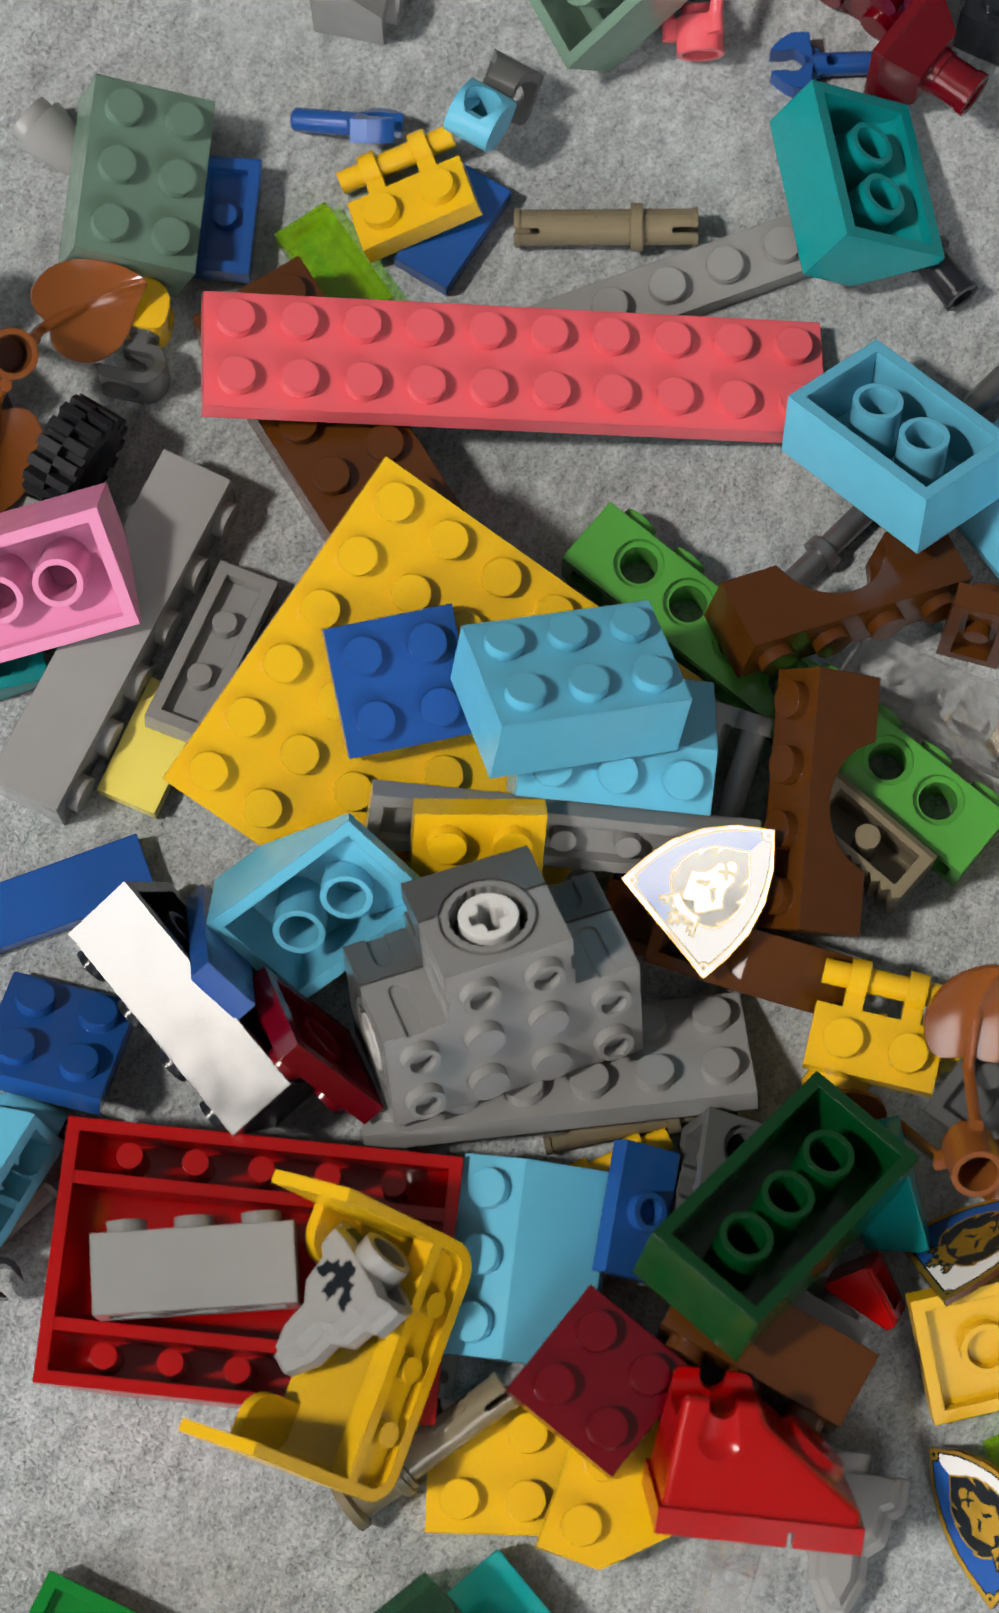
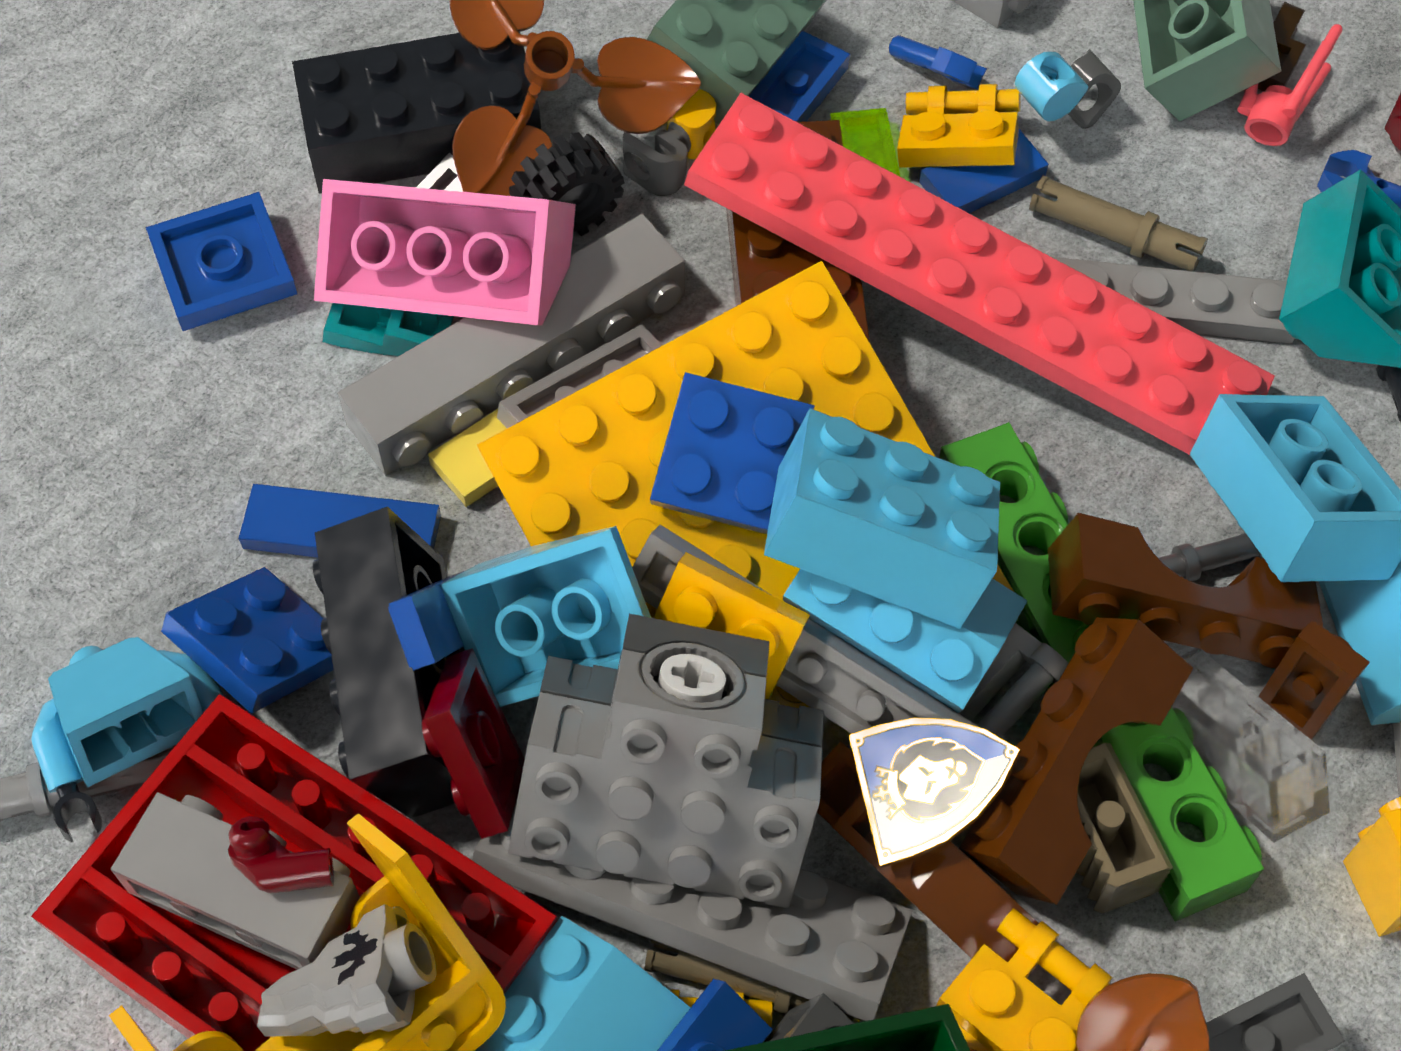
camera: 25 degrees right, 15 degrees down
(227, 1245) = (271, 865): none -> dark red arm

